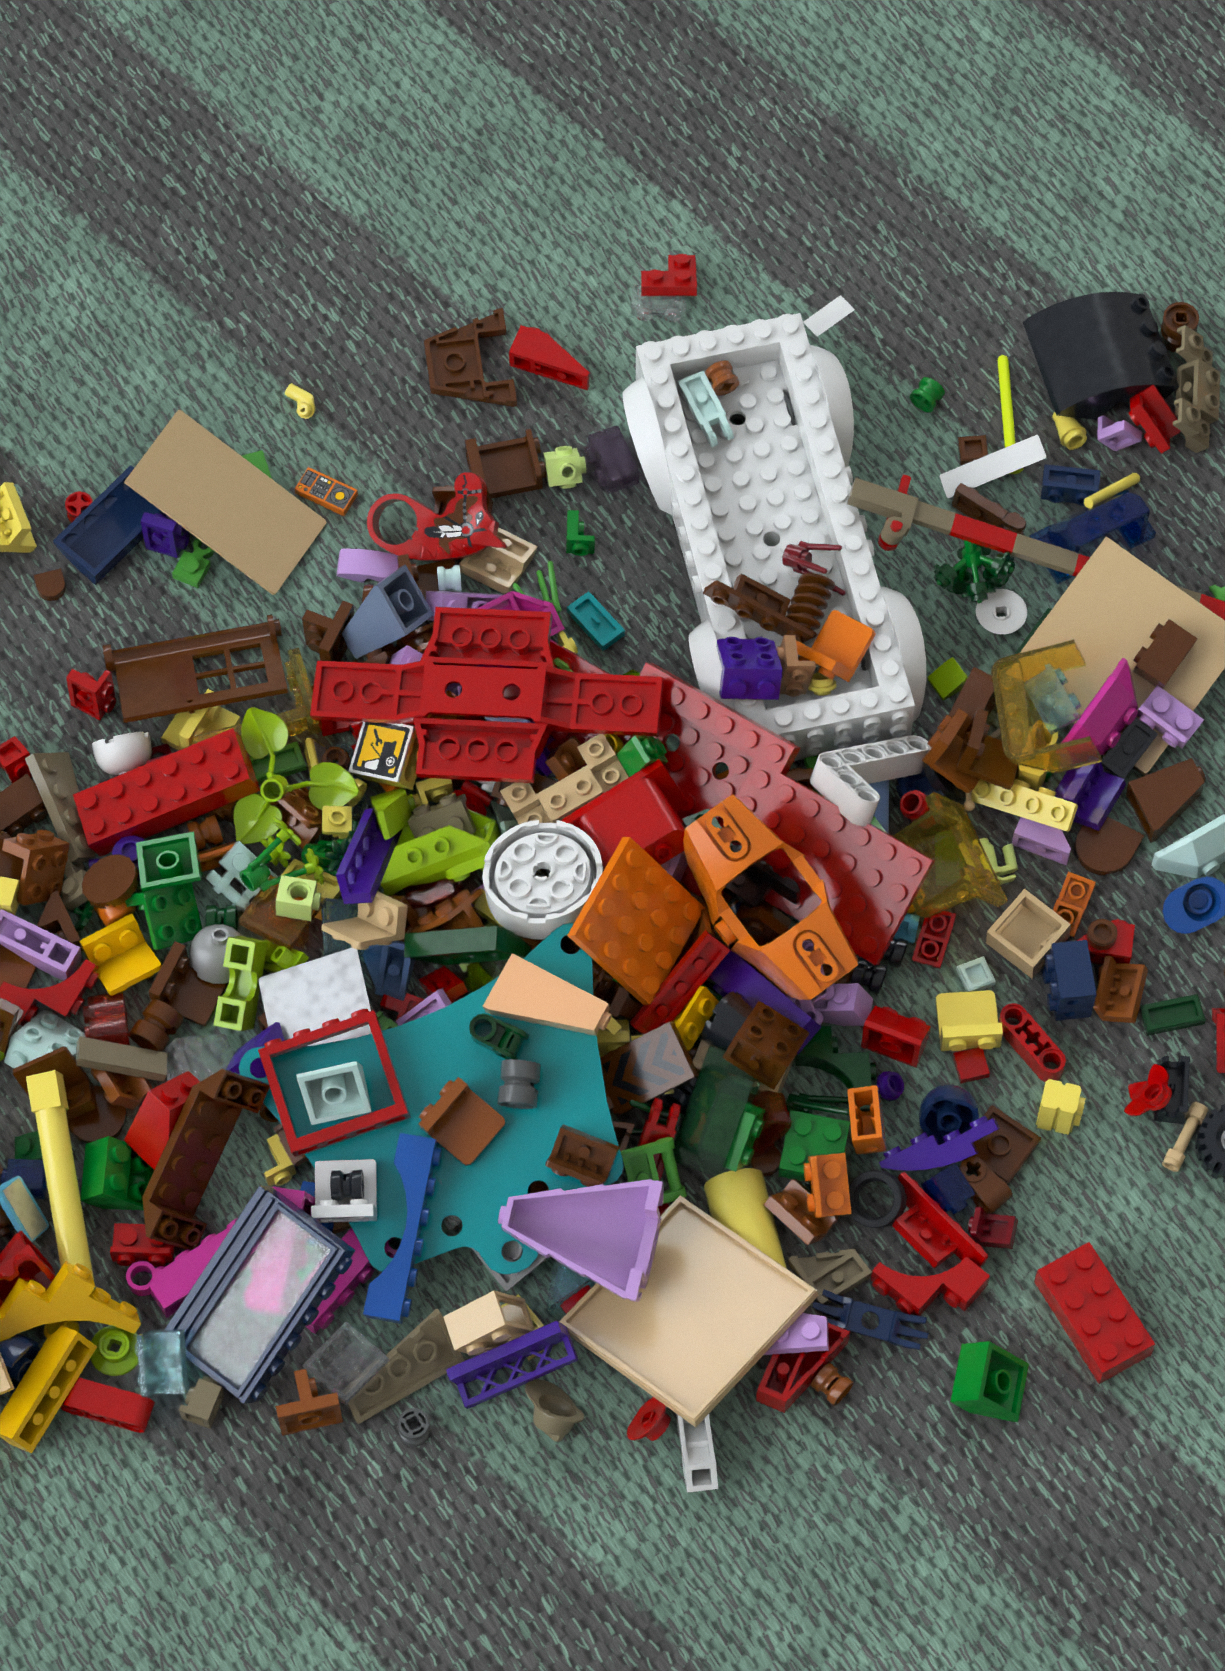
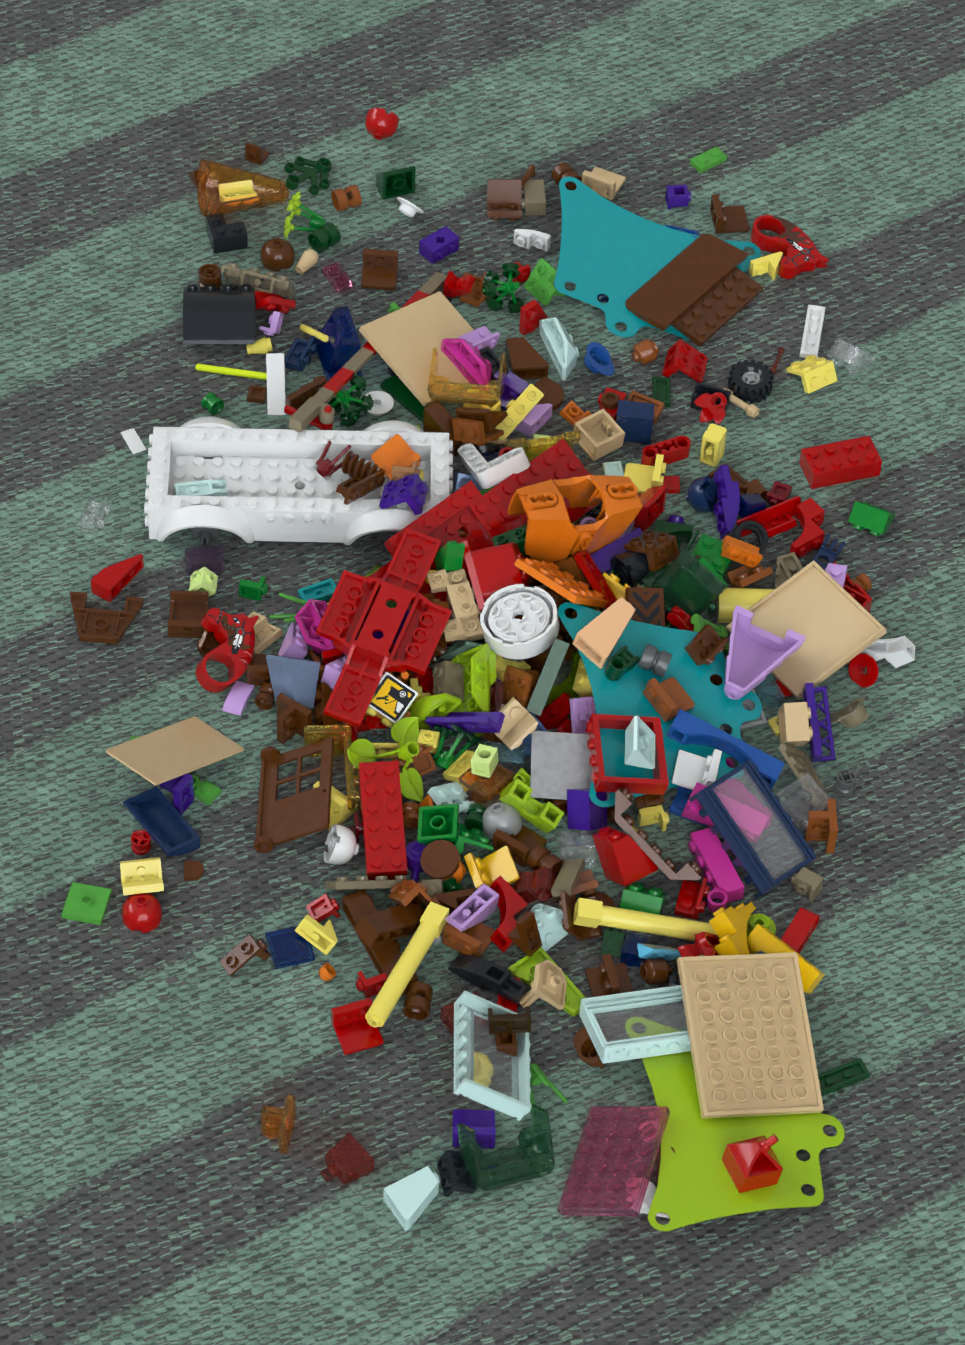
camera: 80 degrees left, 15 degrees down
(91, 695) = (292, 852): red bracket -> none
(162, 1362) = (781, 891): clear light blue bracket -> none
(257, 872) = (460, 780): plant -> none
(304, 400) = (99, 709): light yellow arm -> none
(326, 491) = (173, 710): tile -> none
(336, 753) = (381, 731): reddish brown plate -> none
(347, 1185) = (696, 759): black wheel -> none
(449, 579) = (267, 648): light aqua wheel -> none
(677, 281) = (82, 502): red plate -> none
(722, 377) = (182, 476): dark orange wheel -> none
(866, 1127) = (706, 521): orange torso -> none
(1052, 699) = (458, 373): clear light blue bracket -> none
(1164, 654) = (442, 324): reddish brown brick -> none

